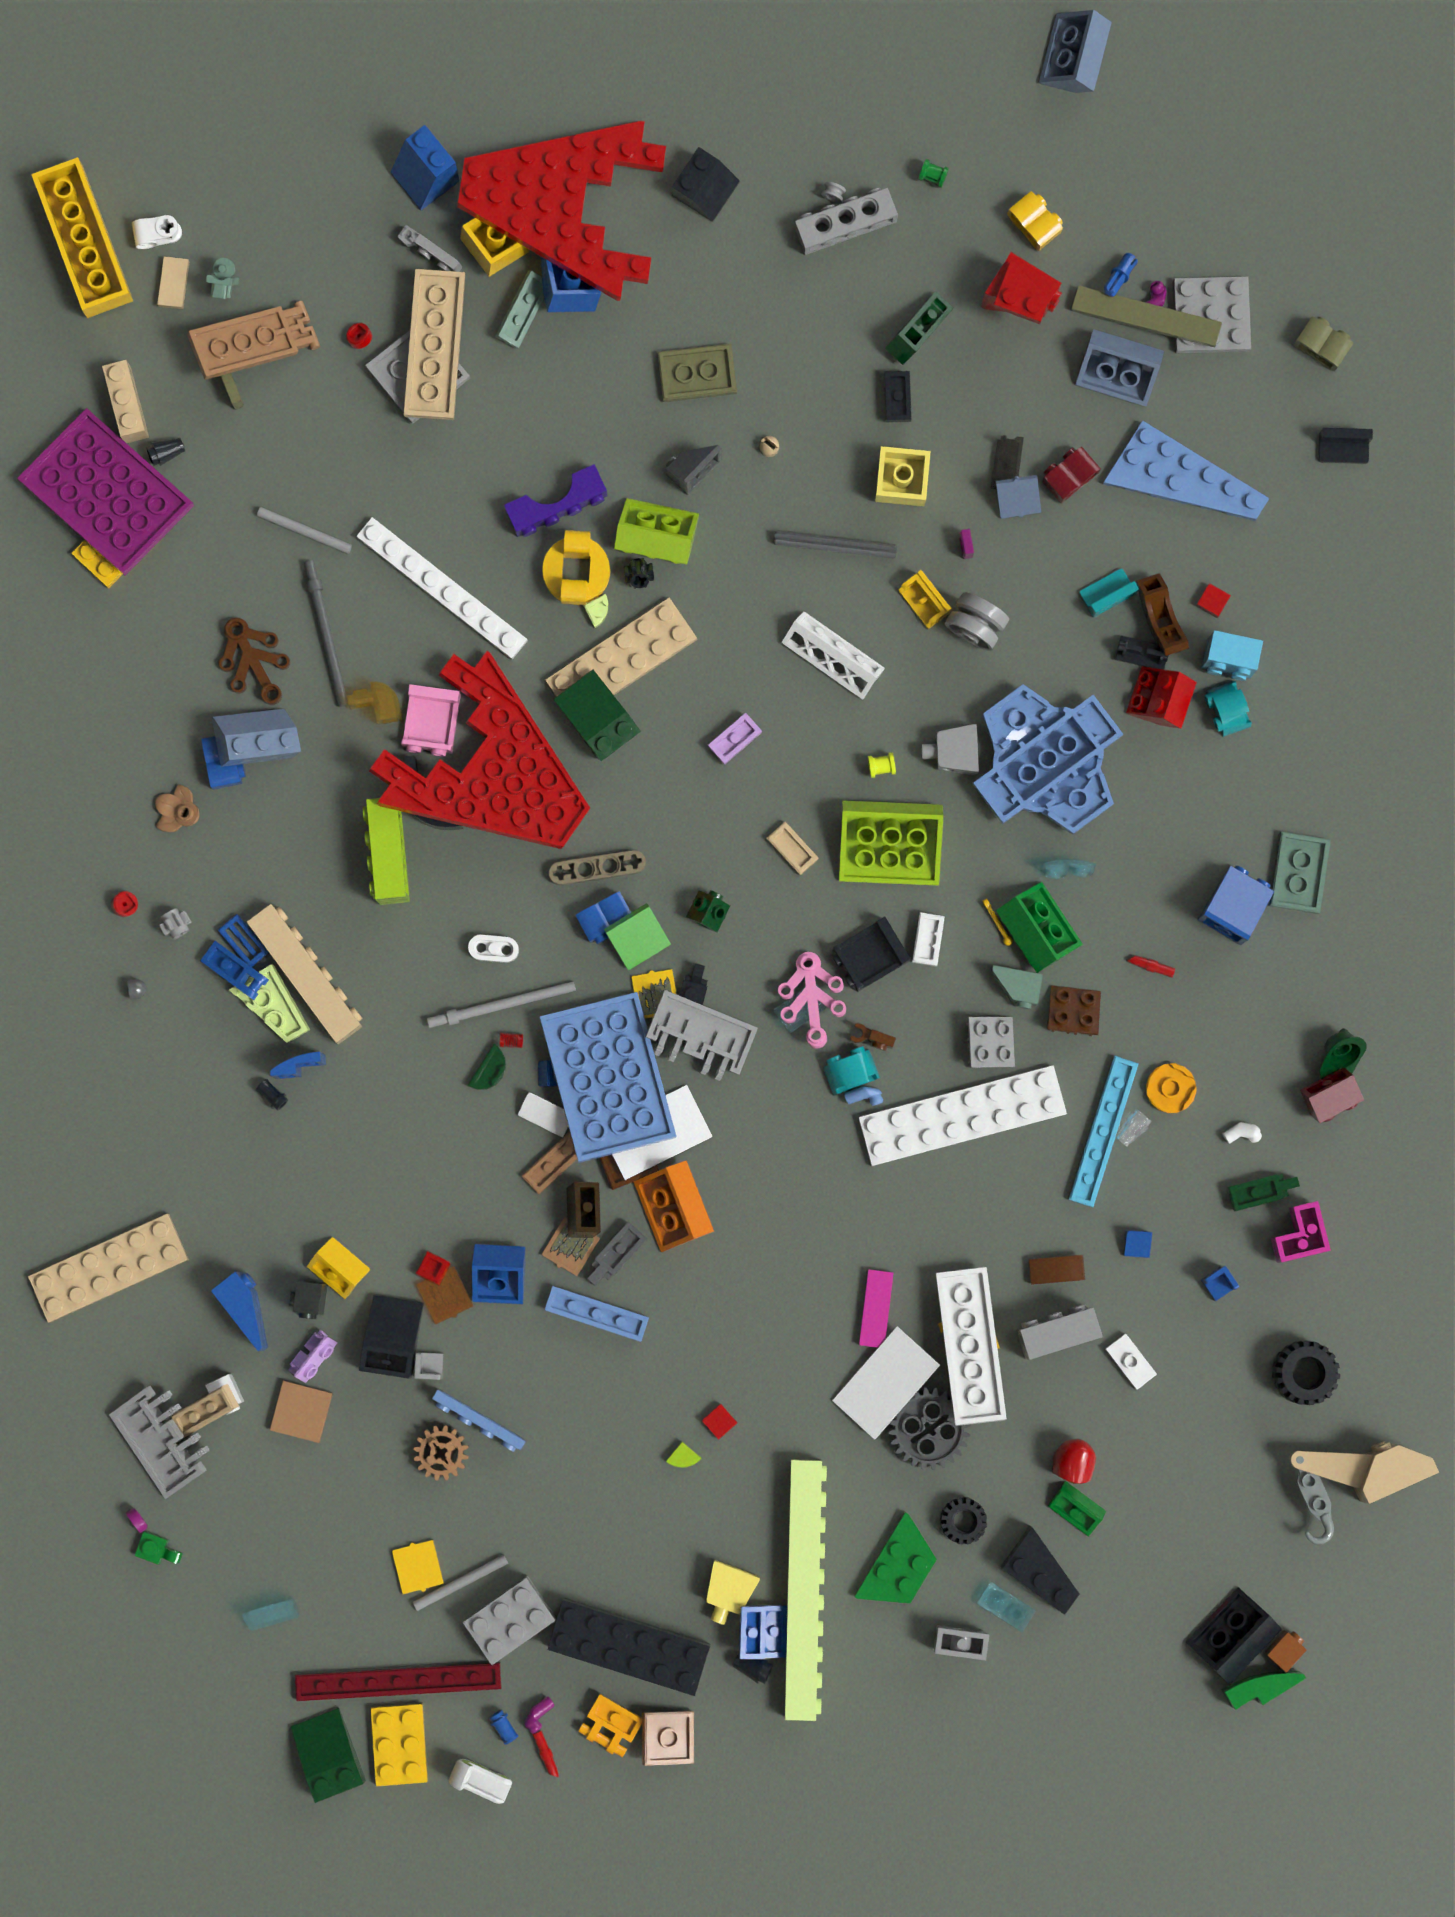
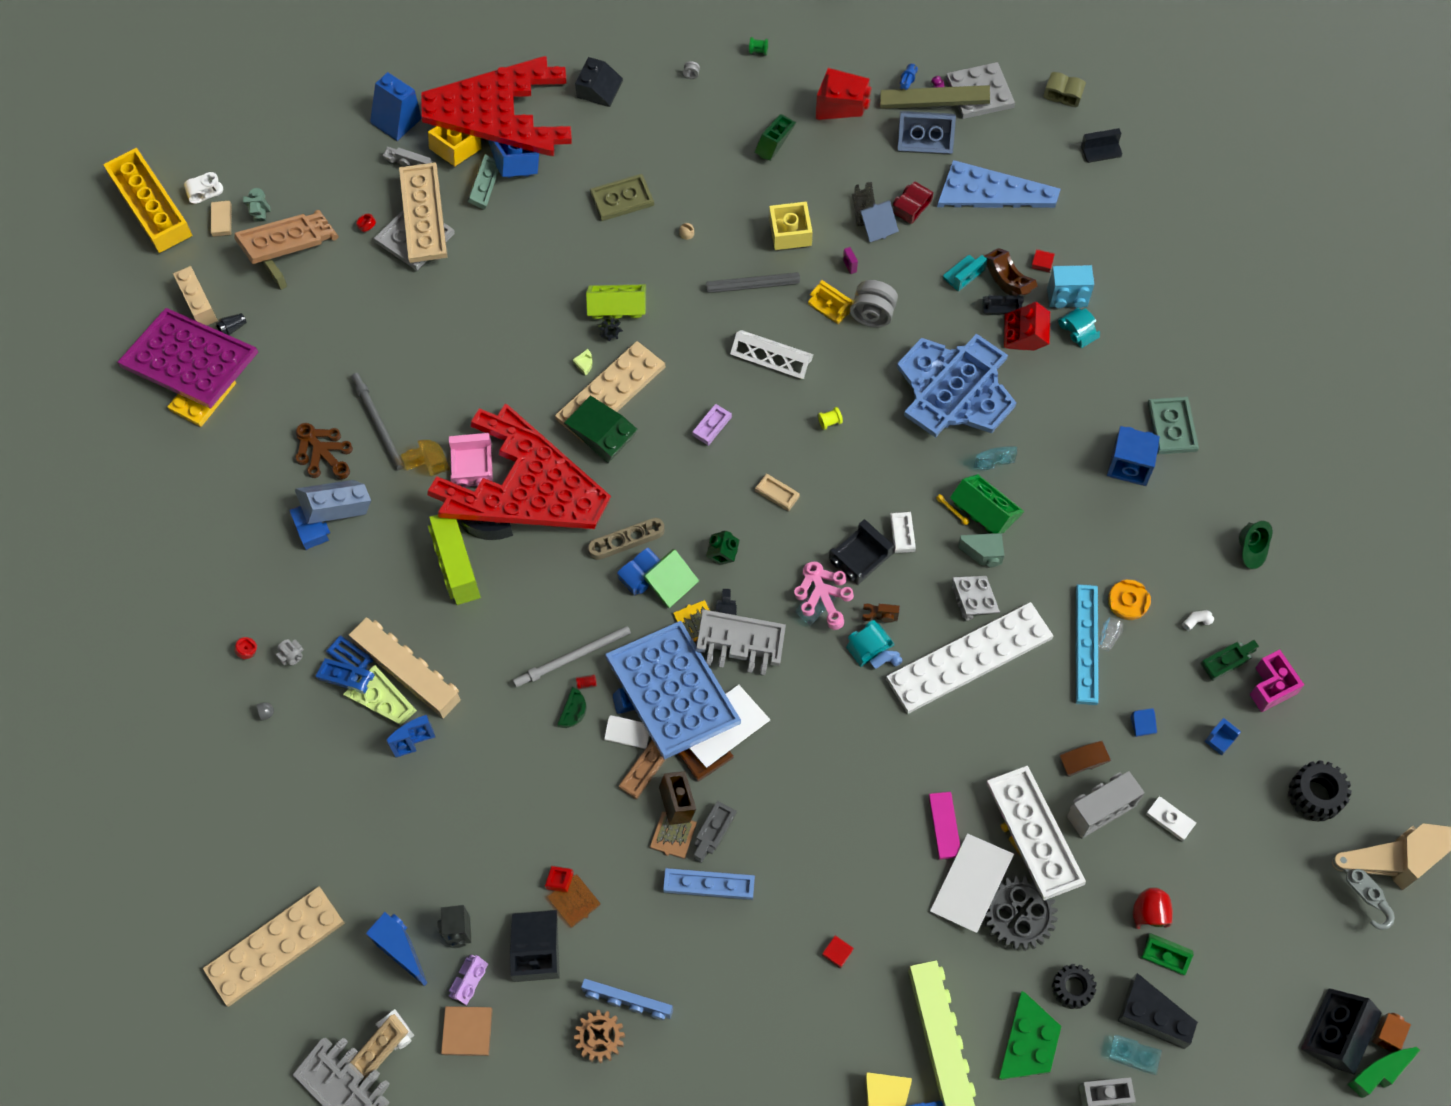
camera: 10 degrees left, 20 degrees down
(173, 808) = (278, 569): medium nougat plate -> none
(272, 1095) = (393, 768): black pin -> none
(304, 530) = (347, 355): light grey bar -> none
(338, 1267) = (477, 897): yellow panel -> none
(429, 1366) = (572, 963): light grey panel -> none
(442, 588) = (462, 372): white plate -> none
(493, 948) = (556, 613): white plate -> none
(498, 1274) = (616, 870): blue slope -> none
(577, 546) = (563, 348): yellow piece -> none
(585, 490) = (518, 308): dark purple arch -> none
(673, 1206) = (752, 780): orange slope -> none
(683, 1456) = (814, 990): lime tile -> none
(693, 466) = (634, 250): dark grey slope -> none
(814, 240) = (704, 84): light grey brick -> none
(891, 842) = (853, 470): lime slope -> none
(898, 396) = (772, 181): black plate -> none
(954, 750) = (883, 396): light grey torso -> none
(1035, 220) = (837, 57): yellow brick -> none
(1074, 1010) = (1034, 558): reddish brown hinge -> none
(1152, 965) = (1083, 514): red piece -> none
(1332, 1095) = (1259, 573): brick -> none

